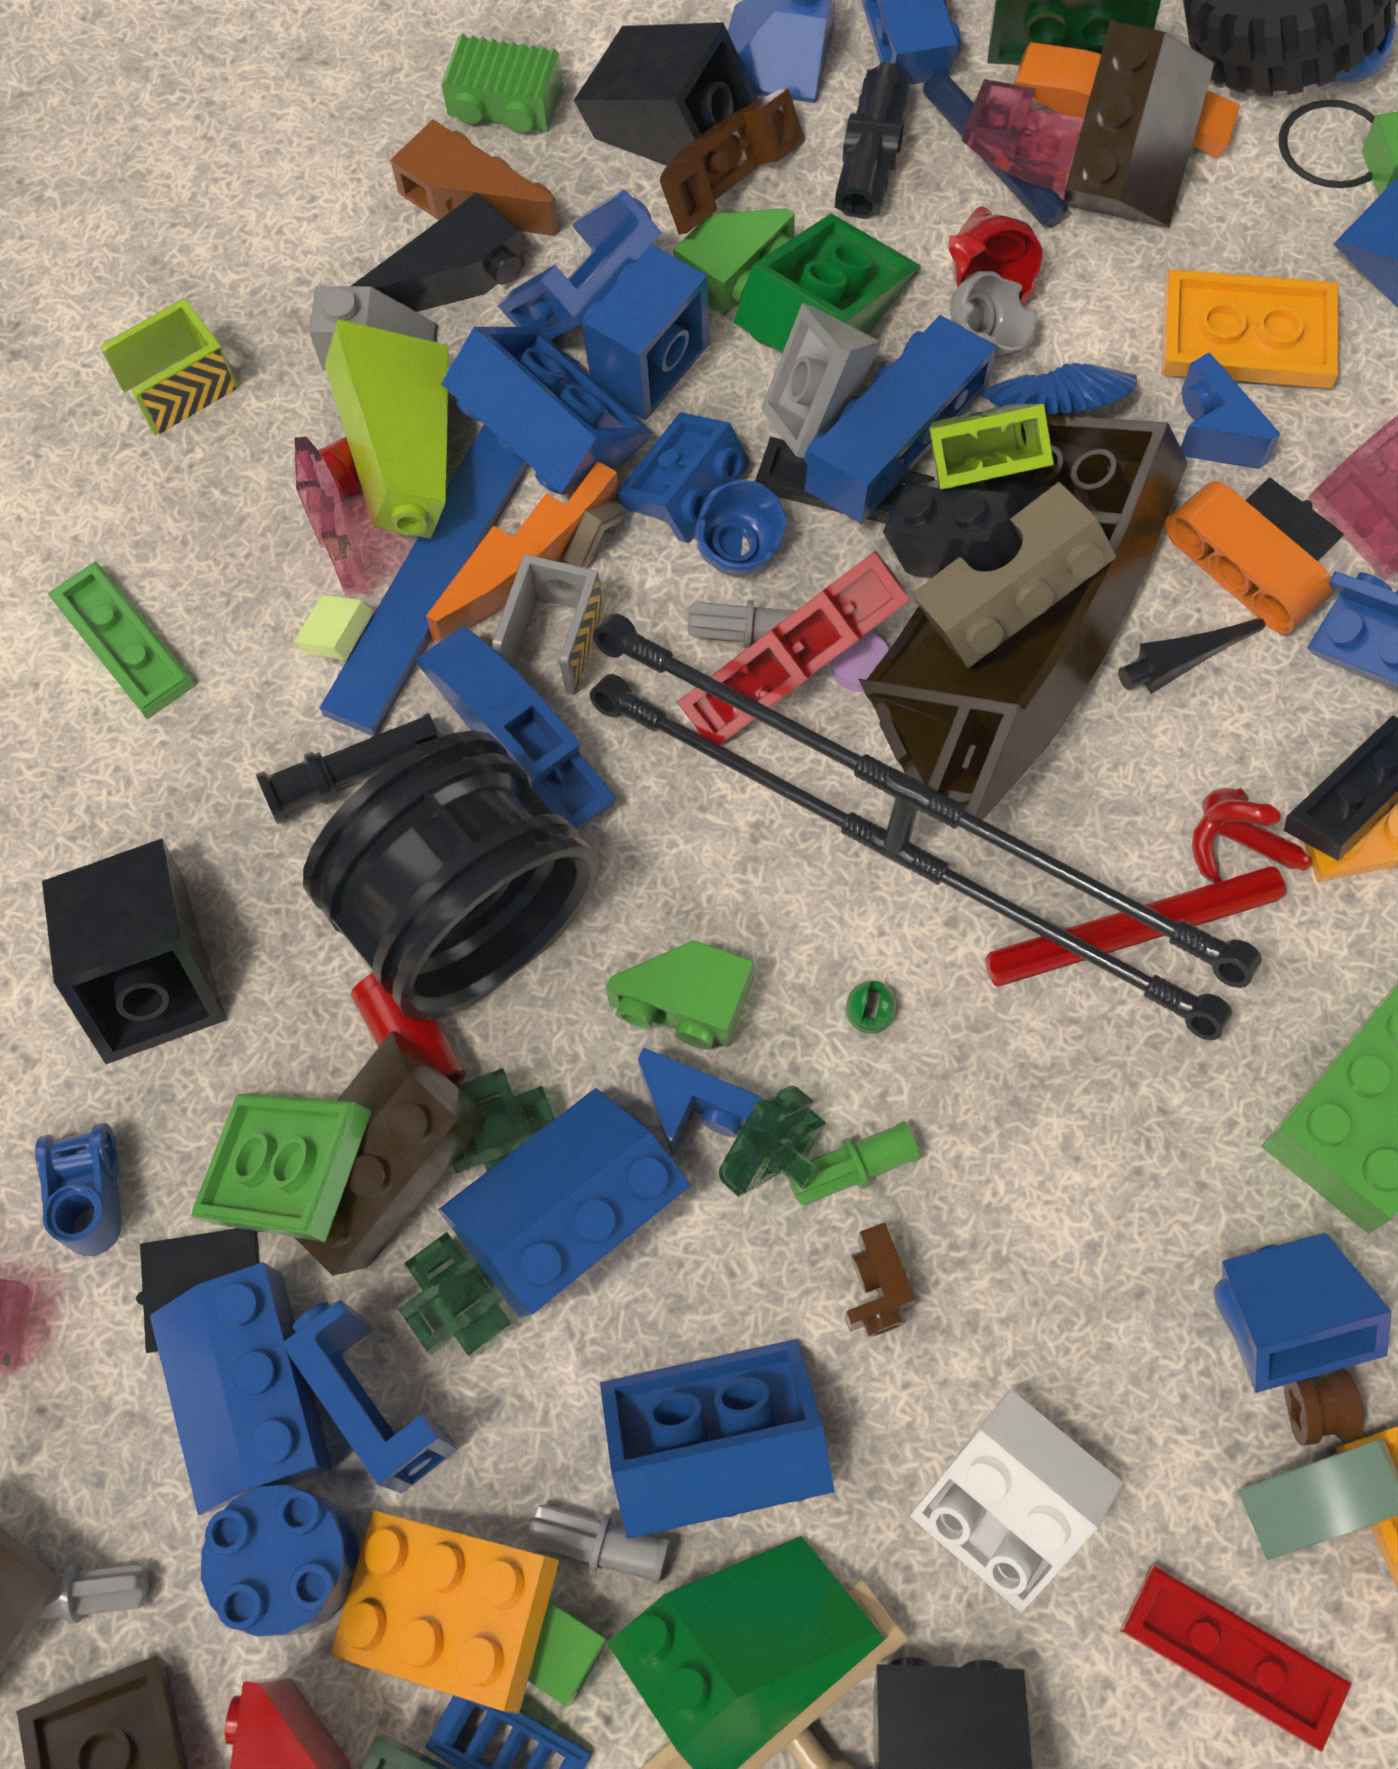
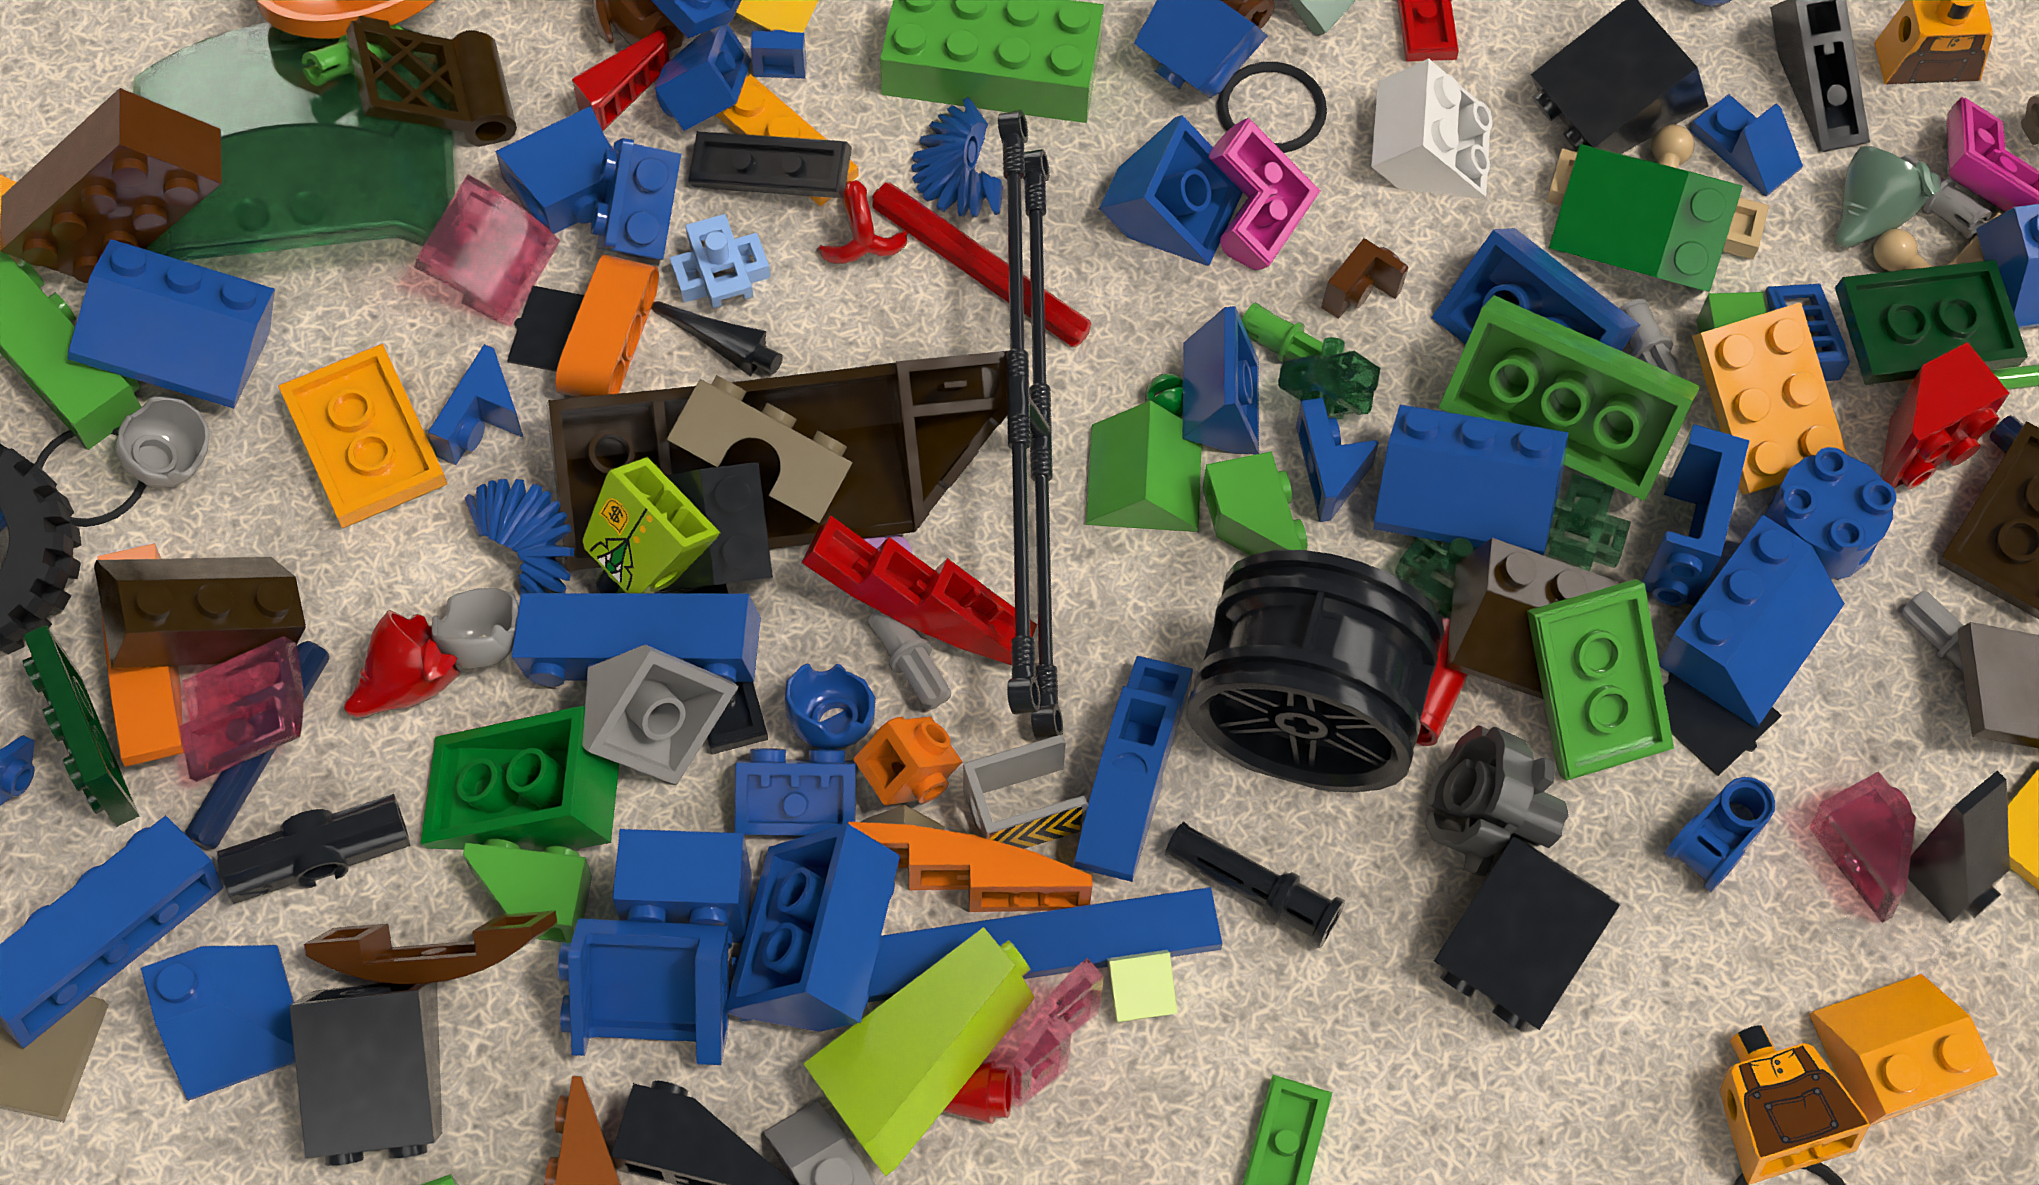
camera: 130 degrees left, 5 degrees down
(252, 985) = (1500, 793): none -> dark grey piece
(582, 1372) = (1550, 377): none -> bright green brick
(648, 537) = (908, 760): none -> orange brick
(797, 930) = (1143, 472): none -> bright green slope
(831, 1049) = (1221, 386): none -> blue slope
(1043, 1261) = (1275, 193): none -> dark pink brick
(1099, 1159) = (1173, 194): none -> blue slope
(1149, 1421) = (1303, 77): none -> black tyre
(1277, 691) = (719, 254): none -> light blue piece
(1284, 980) = (950, 161): none -> blue hair
(1324, 178) = (163, 442): none -> light grey hair

